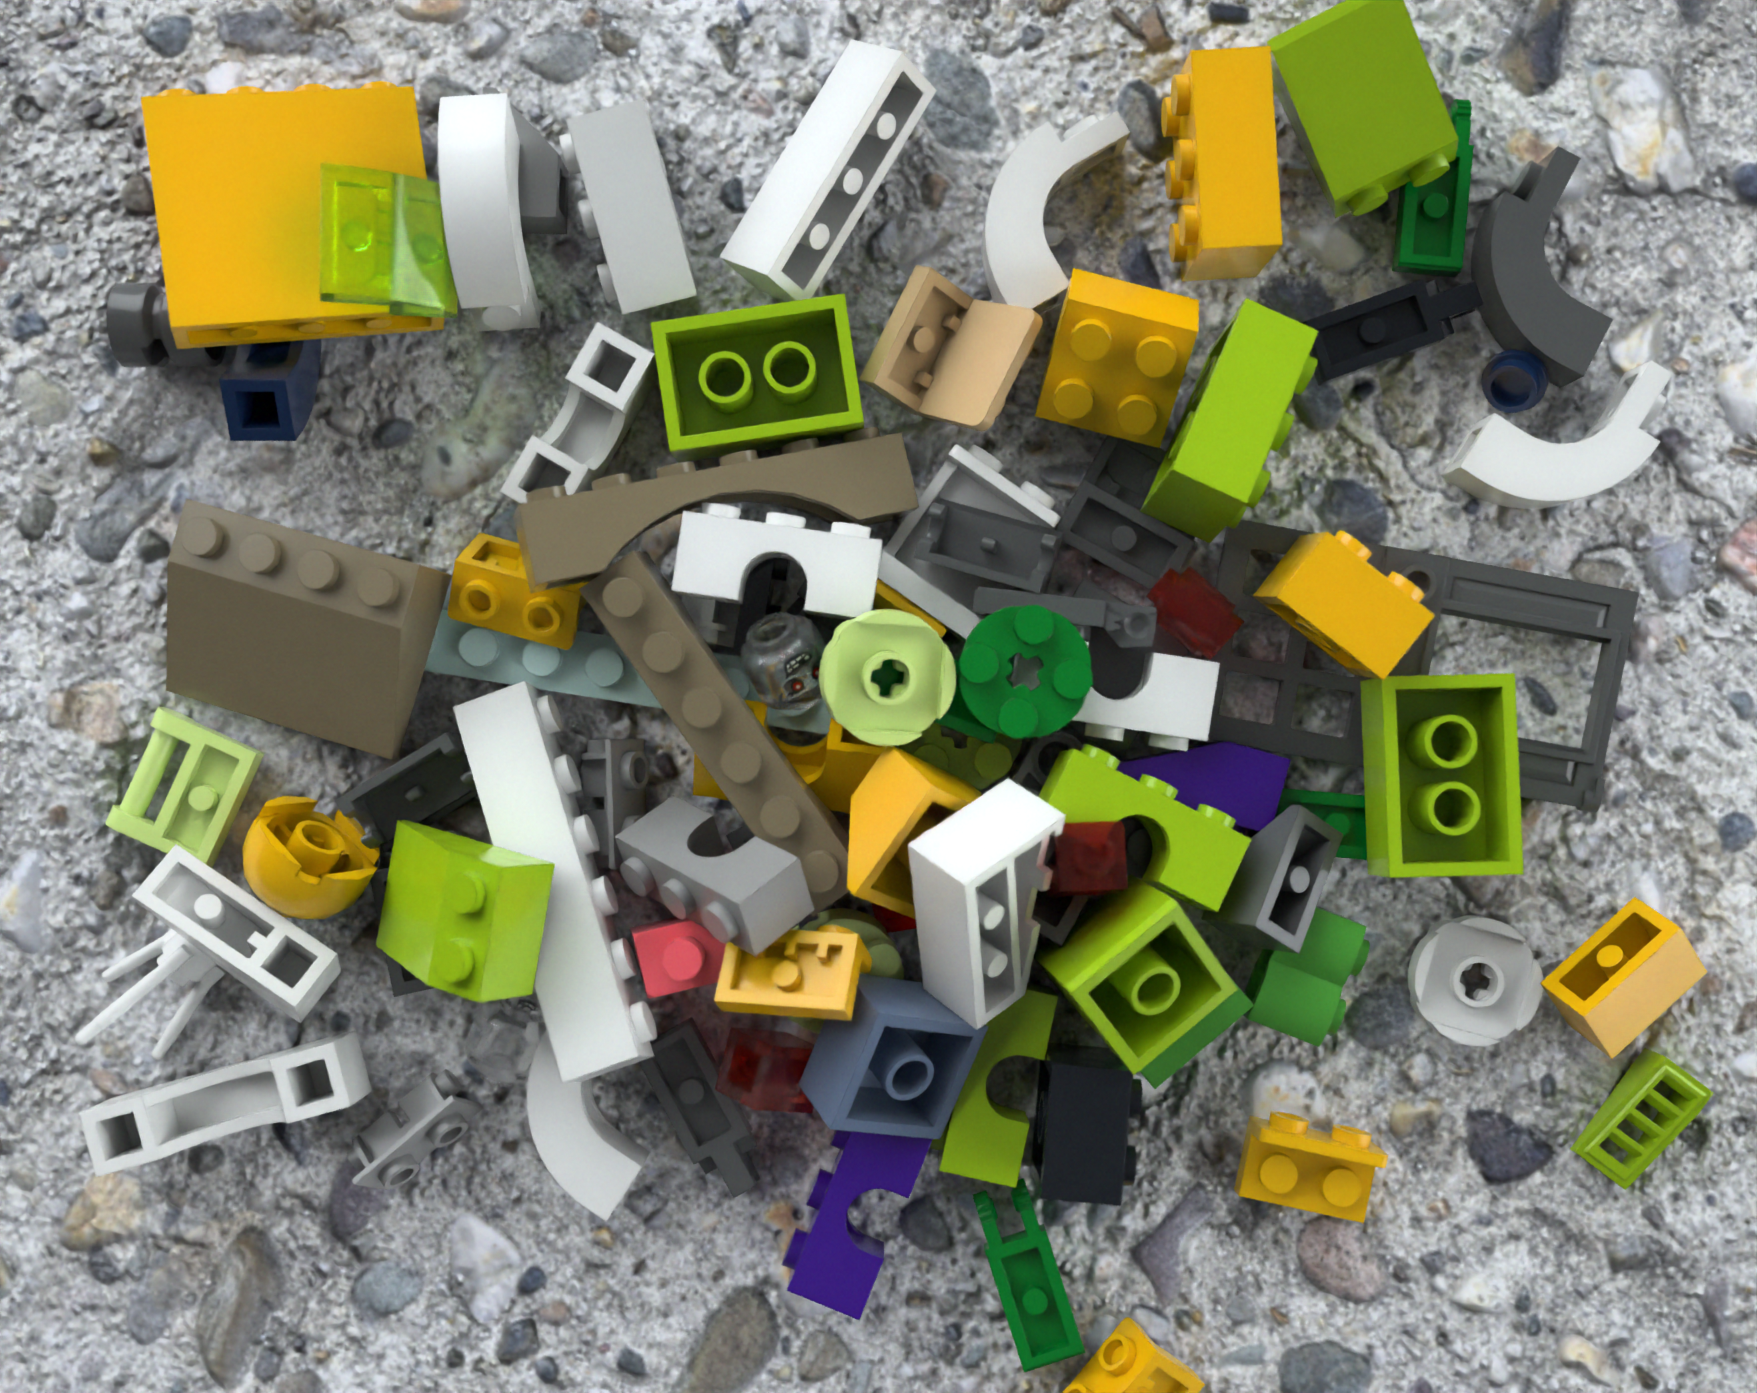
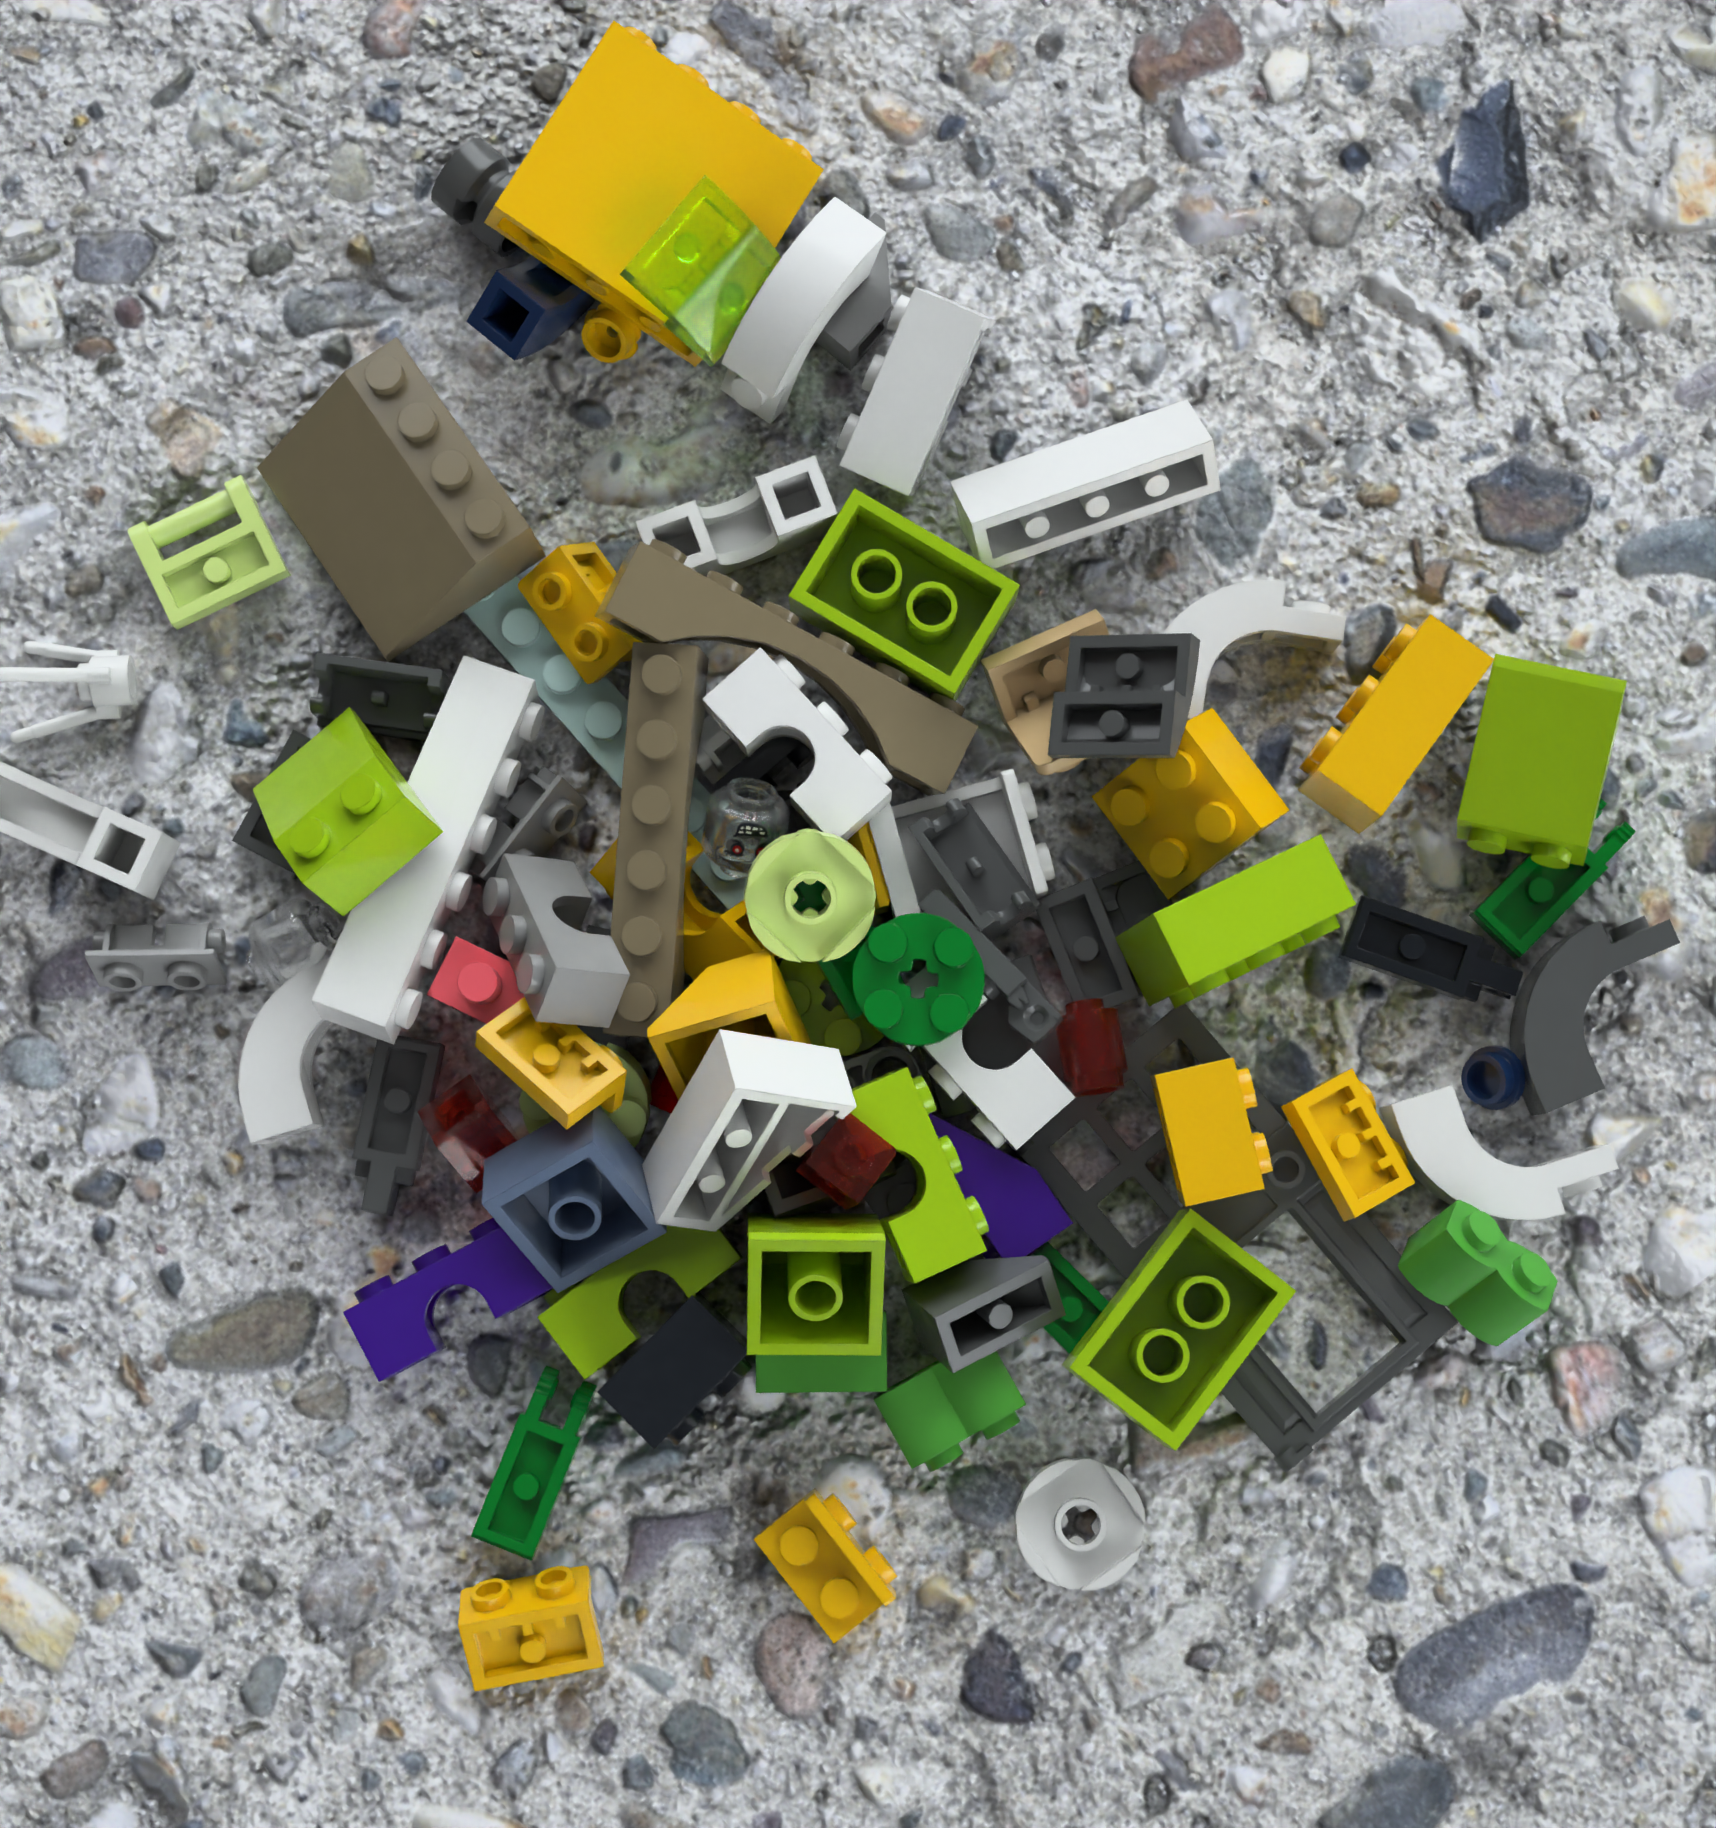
camera: 35 degrees right, 5 degrees down
(239, 933) = (160, 696): white slope -> none
(306, 861) = (253, 681): yellow cylinder -> none
(353, 368) = (603, 341): none -> yellow plate
(1003, 314) = (1124, 696): none -> dark grey slope
(1451, 524) = (1348, 1144): none -> yellow bracket
(1624, 977) = (1198, 1615): yellow brick -> none
(1628, 542) = (1478, 1273): none -> bright green brick
(1673, 1117) = (1152, 1765): lime slope -> none

